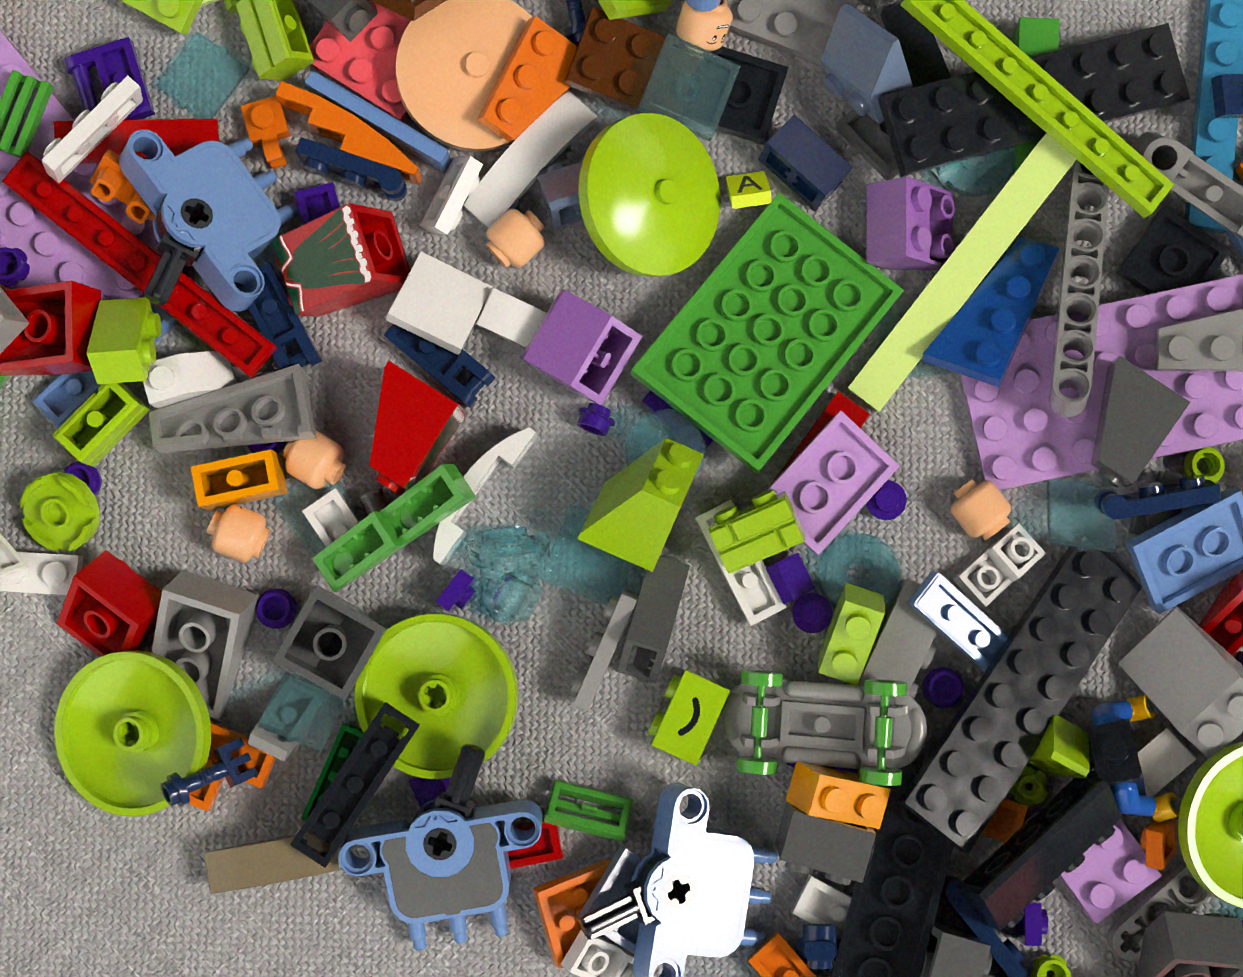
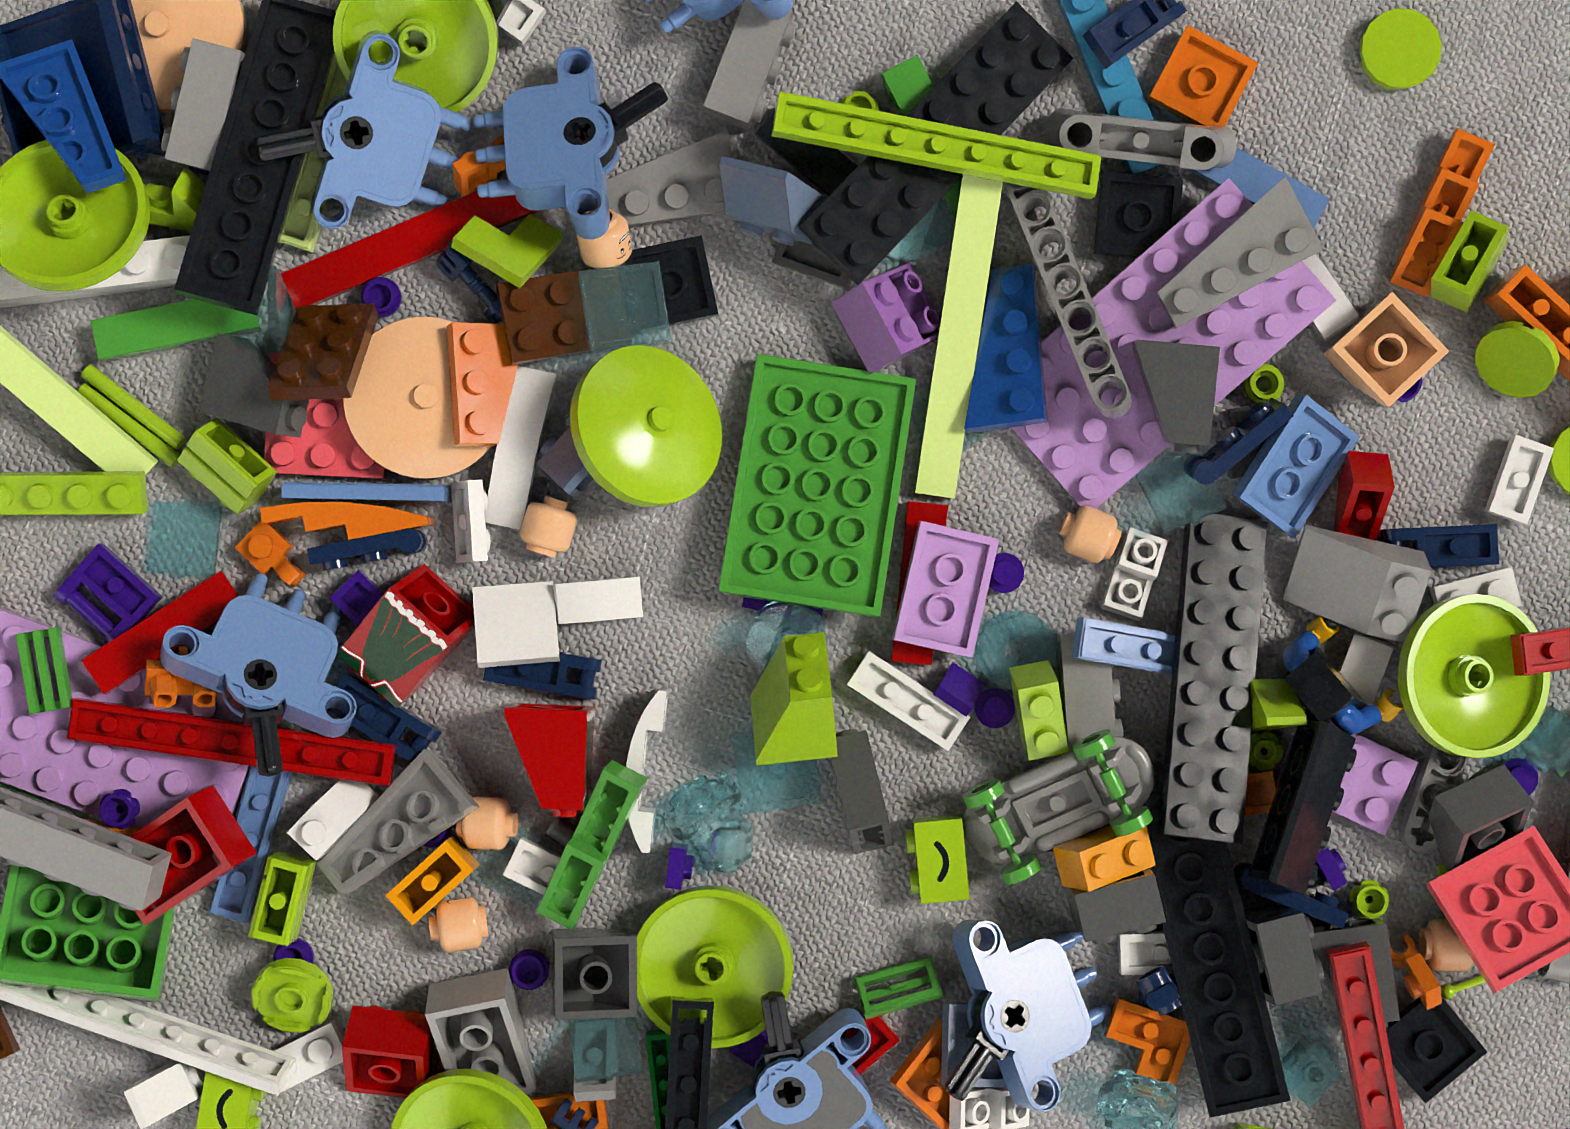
camera: 30 degrees left, 5 degrees up
(91, 128) = (119, 649): white plate -> none
(123, 340) = (261, 819): lime brick -> none
(581, 347) = (663, 594): medium lavender slope -> none
(595, 419) = (710, 646): dark purple plate -> none
(603, 648) = (832, 843): light grey plate -> none
(748, 189) = (728, 366): neon yellow tile -> none
(756, 531) = (907, 670): lime brick -> none
(804, 162) = (764, 312): dark blue hinge -> none
(942, 687) = (1143, 707): dark purple plate -> none
(1159, 842) = (1401, 738): orange plate -> none

